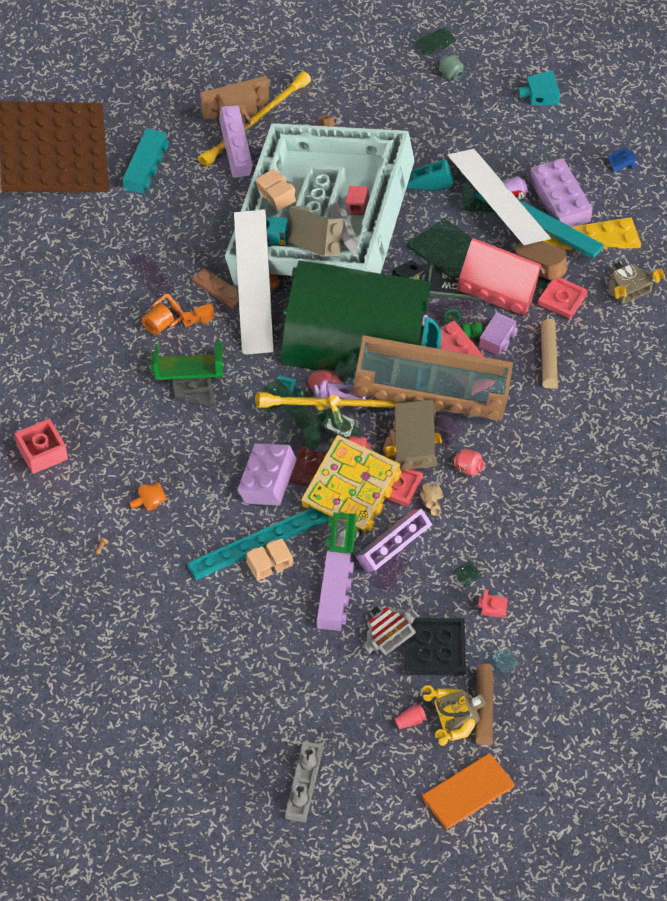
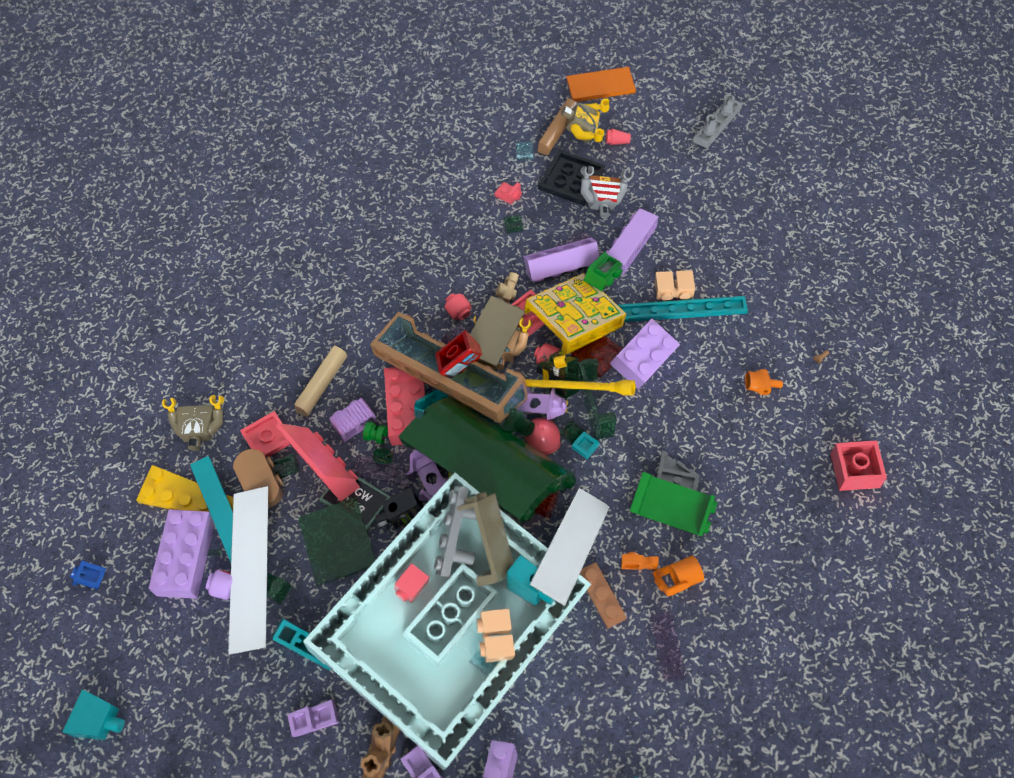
camera: 150 degrees left, 5 degrees up
(424, 371) = (458, 354): none -> red slope

